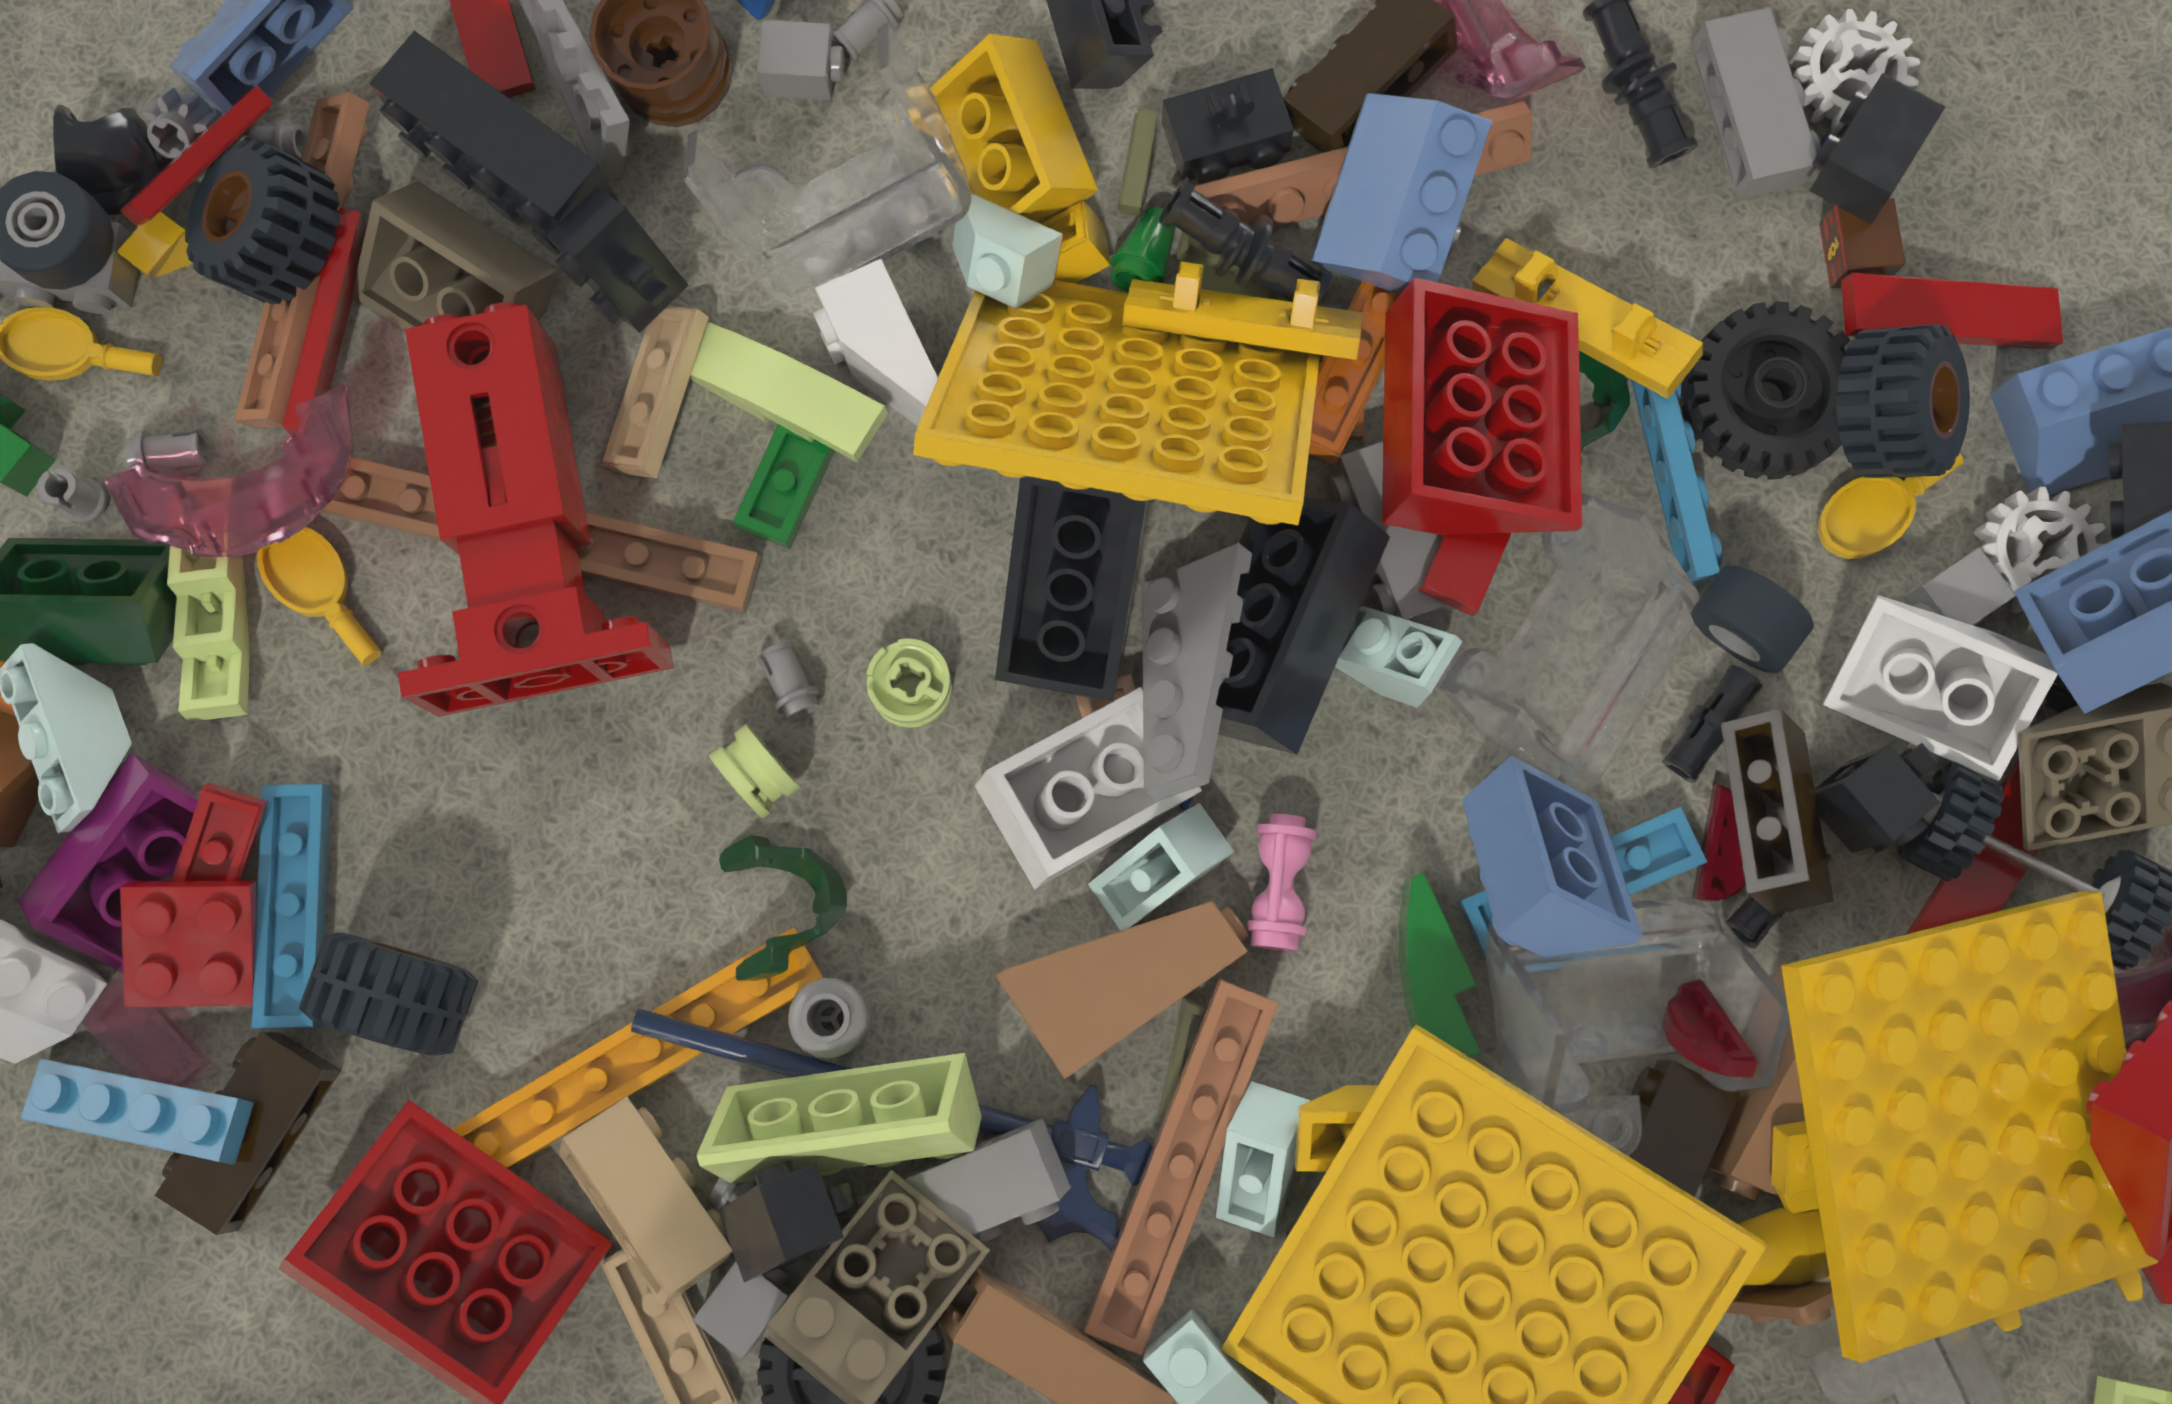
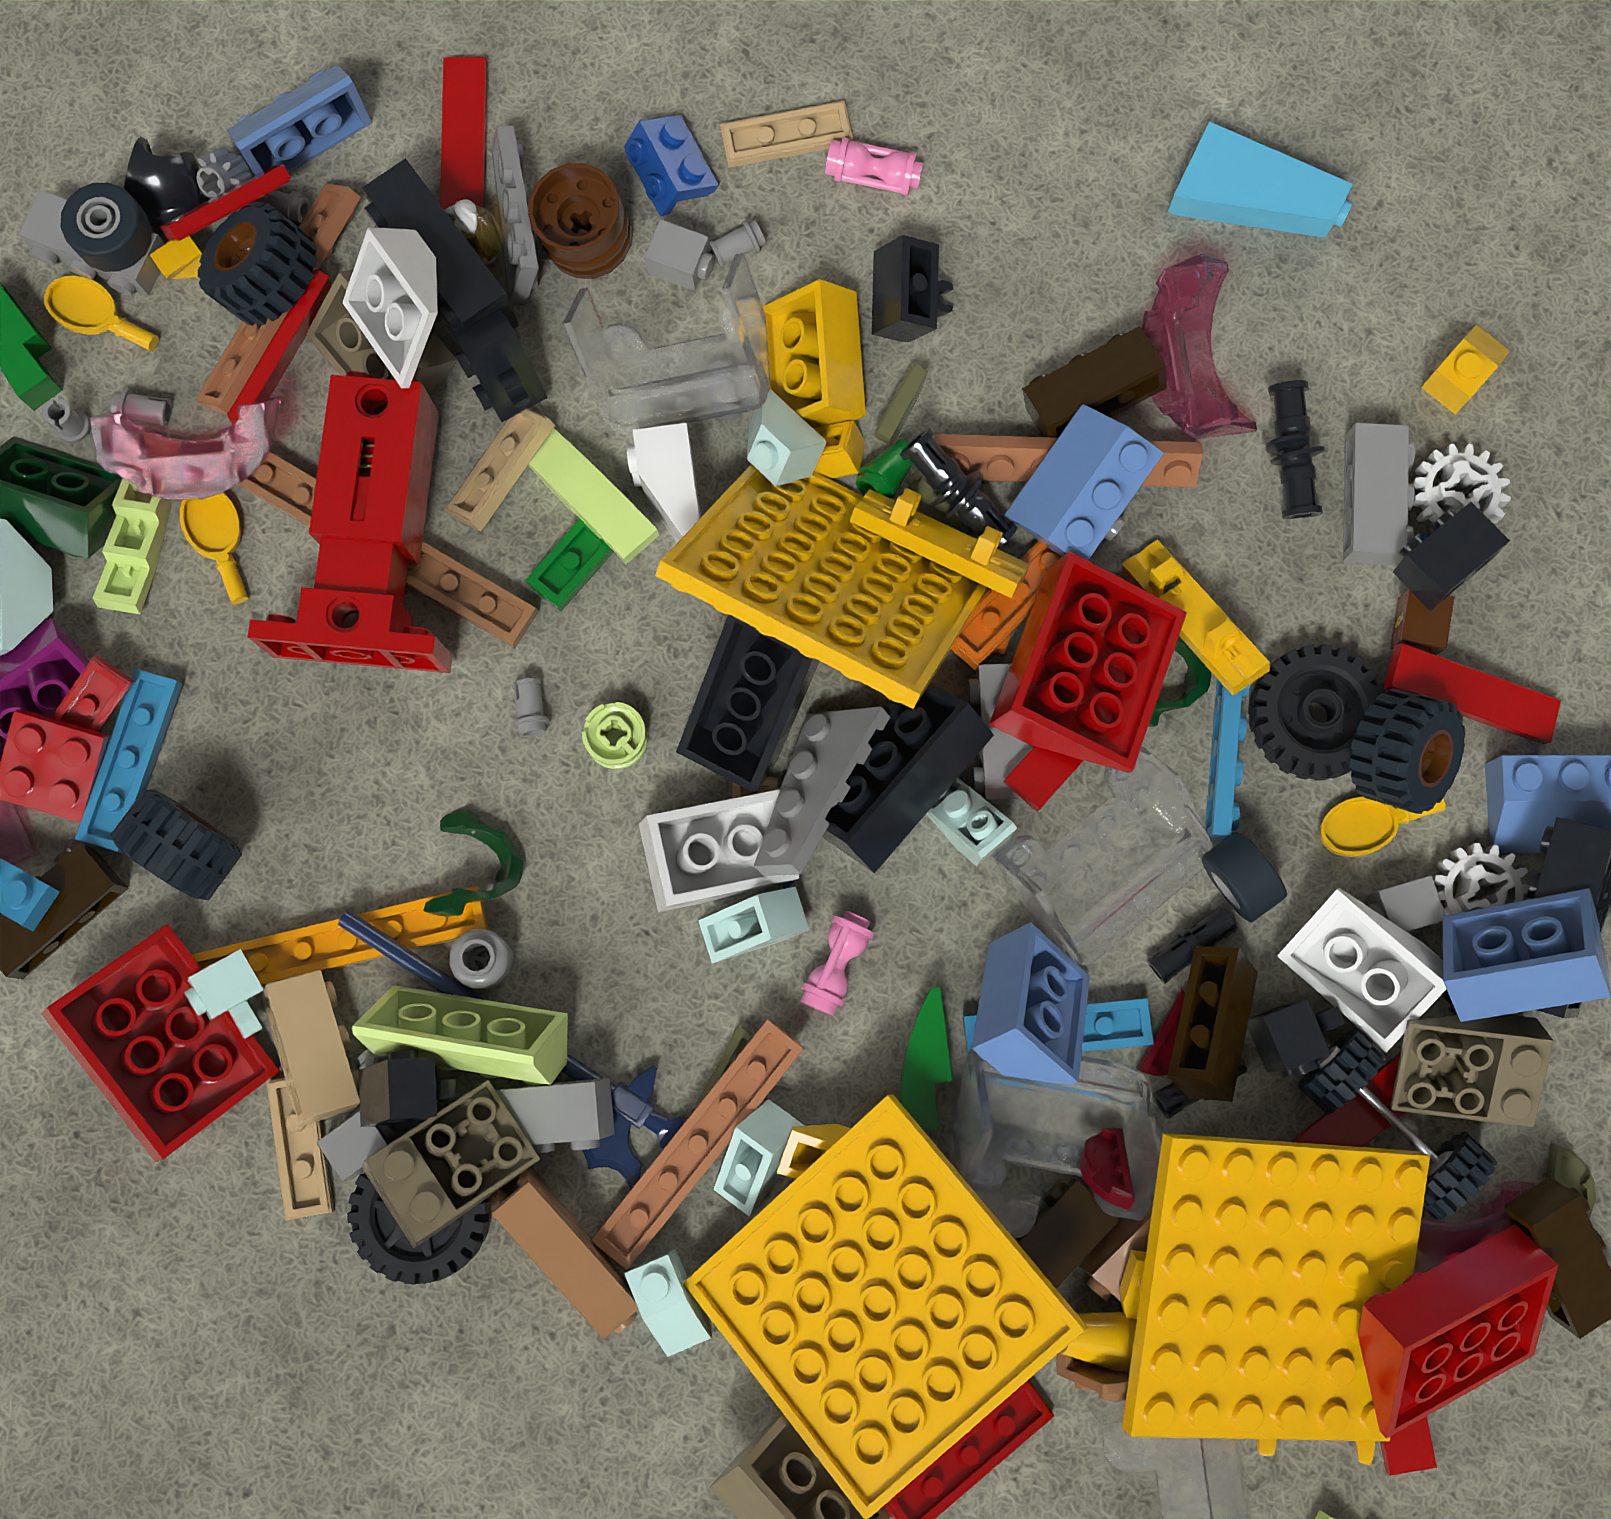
camera: 20 degrees right, 0 degrees up
(458, 207) = (394, 297): none -> white slope
(513, 1159) = (226, 988): none -> light aqua brick
(535, 94) = (478, 228): none -> clear yellow hair
(754, 771) = (483, 765): yellowish green wheel -> none
(1113, 985) = (691, 999): medium nougat slope -> none
(1227, 127) = (976, 397): black brick -> none

